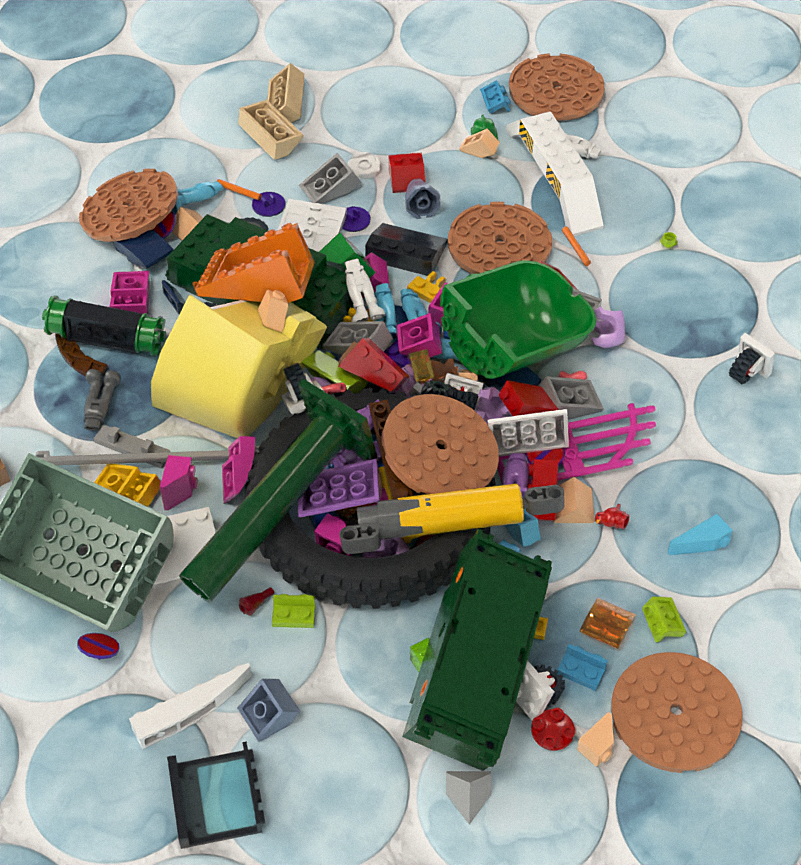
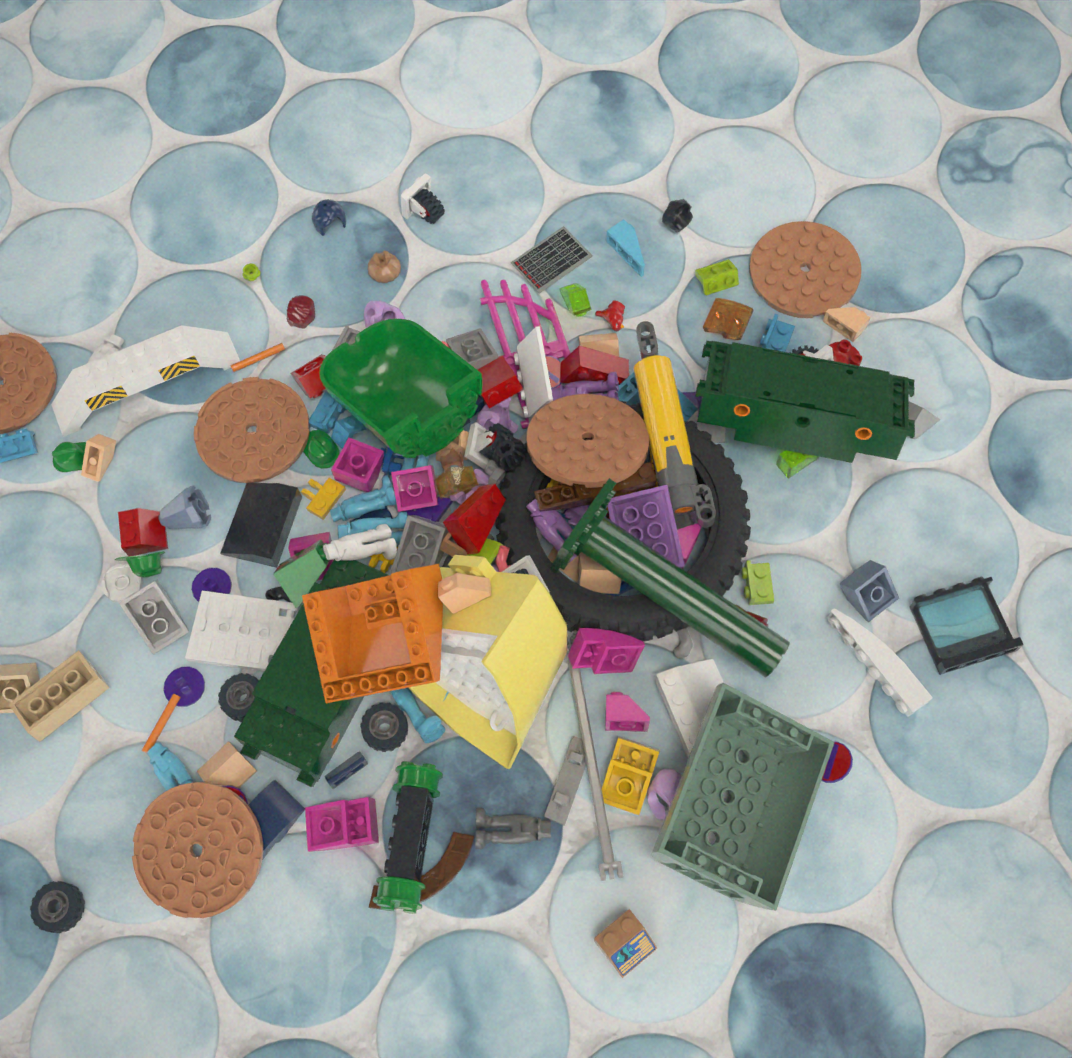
camera: 90 degrees left, 15 degrees up
(109, 137) = (44, 905): none -> black wheel
(375, 173) = (144, 565): none -> green piece
(622, 271) = (300, 311): none -> dark red hair
(633, 484) = (576, 299): none -> clear neon green slope
(676, 336) = (384, 267): none -> medium nougat hair
(689, 474) = (551, 259): none -> black sticker
(736, 289) = (325, 213): none -> dark blue piece
(743, 586) = (677, 215): none -> black hair

